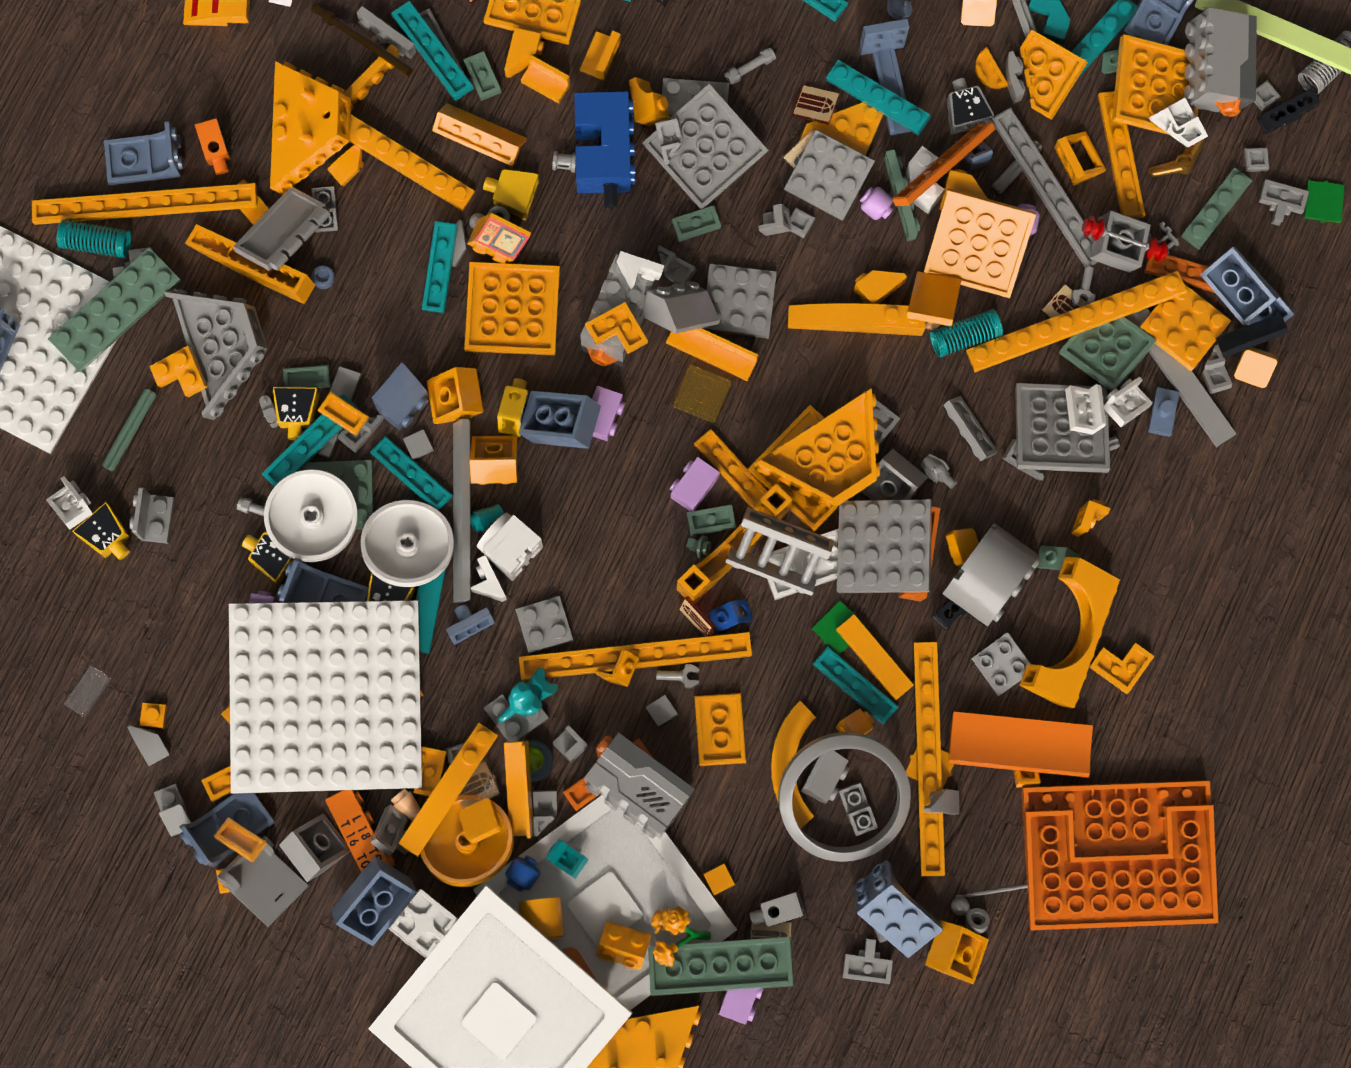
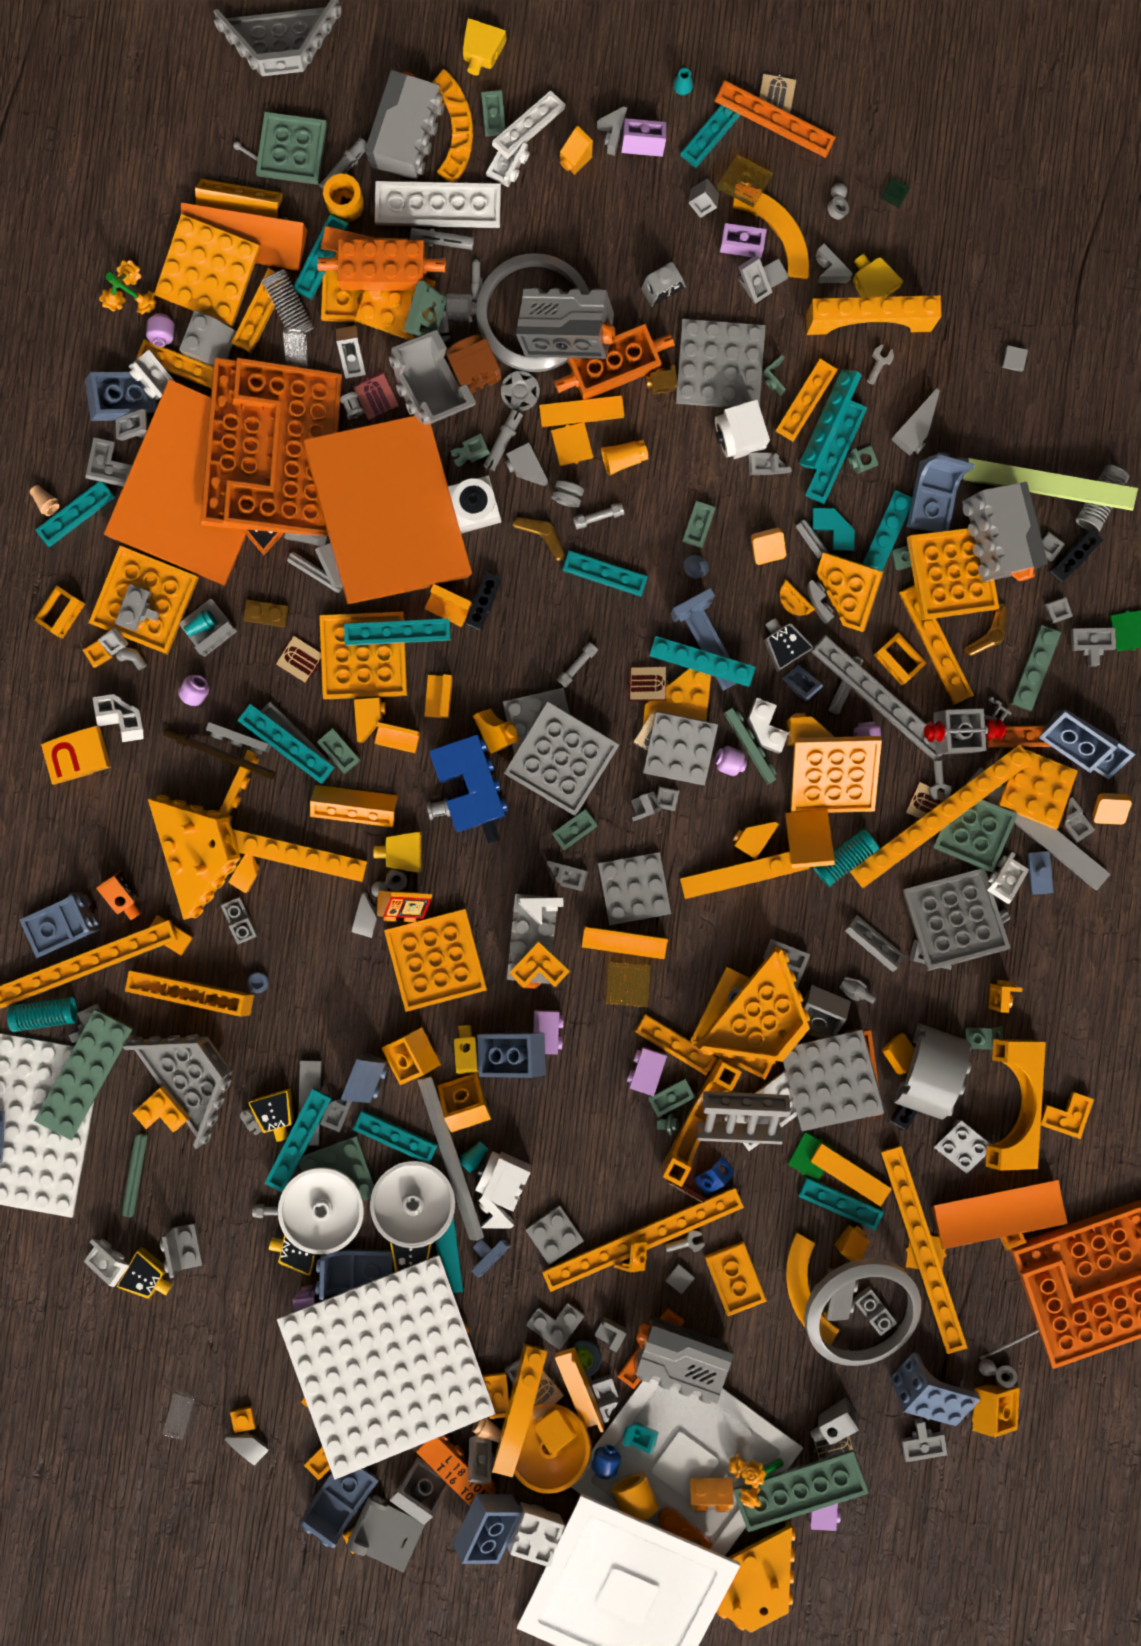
camera: 10 degrees left, 10 degrees up
(172, 809) = (289, 1496): light grey slope -> none
(240, 839) = (355, 1509): light orange tile -> none
(281, 229) = (206, 956): light grey hinge -> none
(307, 377) = (274, 1079): sand green tile -> none
(343, 413) = (318, 1108): light orange tile -> none
(418, 444) = (392, 1109): light grey tile -> none
(440, 267) = (359, 942): teal tile -> none
(527, 697) = (561, 1310): teal animal -> none
(669, 138) = (527, 763): light grey slope -> none
(680, 307) = (587, 922): light grey slope -> none
(719, 879) = (774, 1408): light orange tile -> none
(943, 164) = (782, 712): orange tile -> none
(943, 802) = (948, 1286): light grey slope -> none
(1085, 409) = (973, 899): white bracket -> none
(1180, 123) = (983, 602): white slope -> none
(1252, 335) = (1102, 783): black tile -> none

